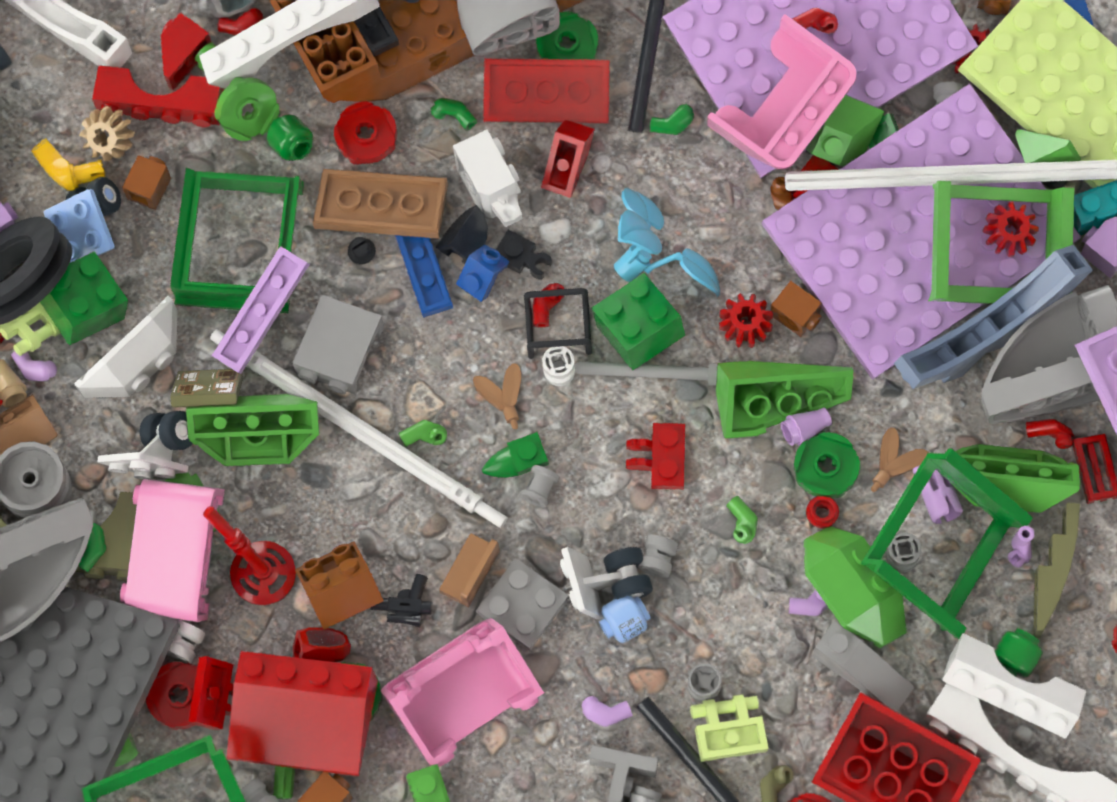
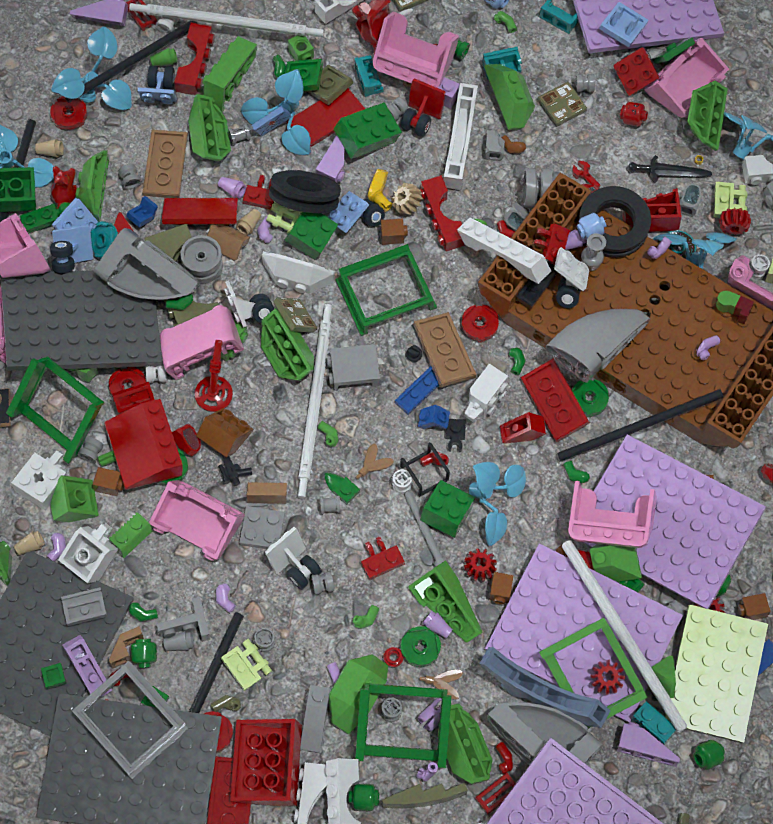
camera: 55 degrees right, 5 degrees down
(180, 44) = (476, 208): red slope -> none
(235, 97) = (459, 247): bright green plate -> none
(260, 310) = (349, 317): lavender plate -> none
(290, 137) = (455, 287): green head -> none
(465, 234) = (450, 400): black brick -> none
(624, 618) = (279, 582): light blue head -> none
(818, 19) = (669, 512): red arm -> none

